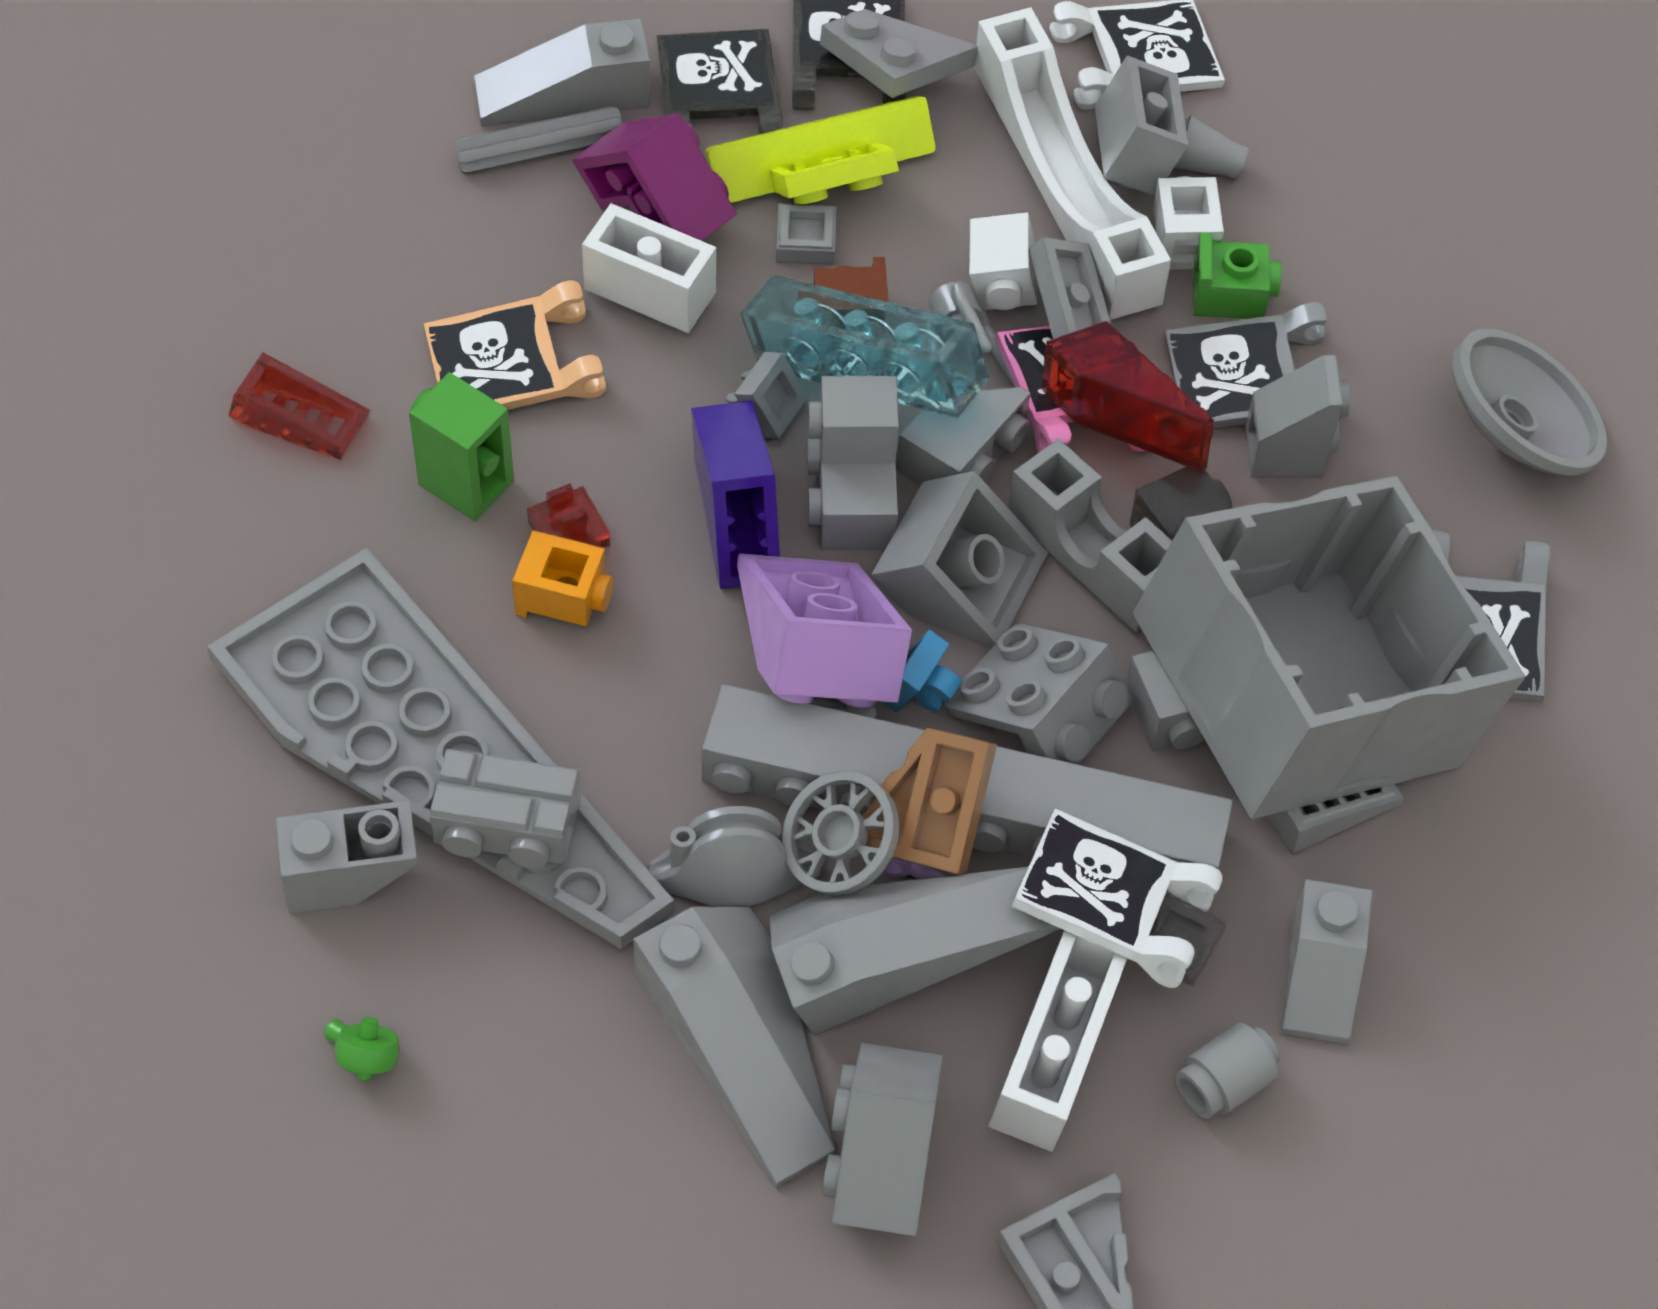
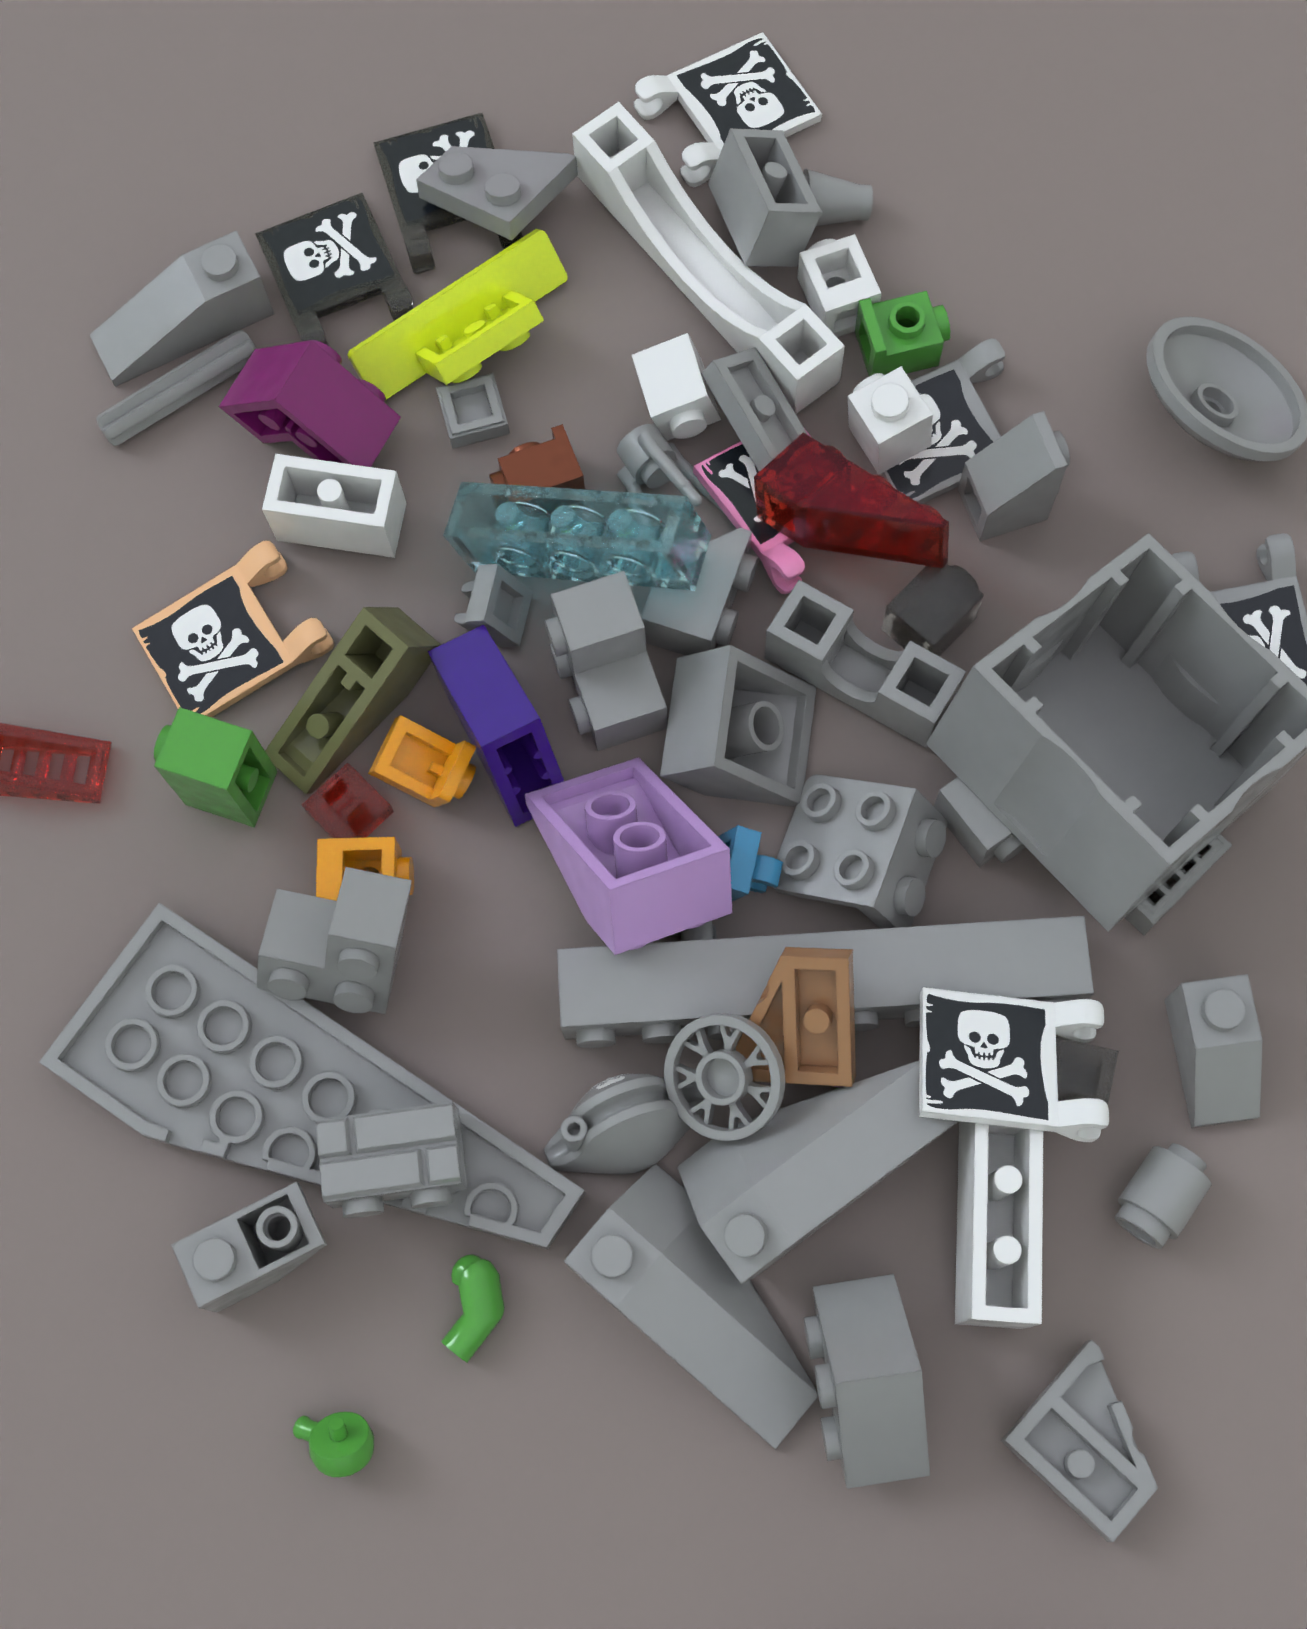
camera: 10 degrees left, 15 degrees up
(524, 626) = (337, 948): none -> light grey brick
(541, 974) = (481, 1305): none -> bright green arm
(609, 428) = (351, 694): none -> olive slope
(652, 504) = (424, 763): none -> light orange bracket
(1195, 339) = (889, 419): none -> white brick

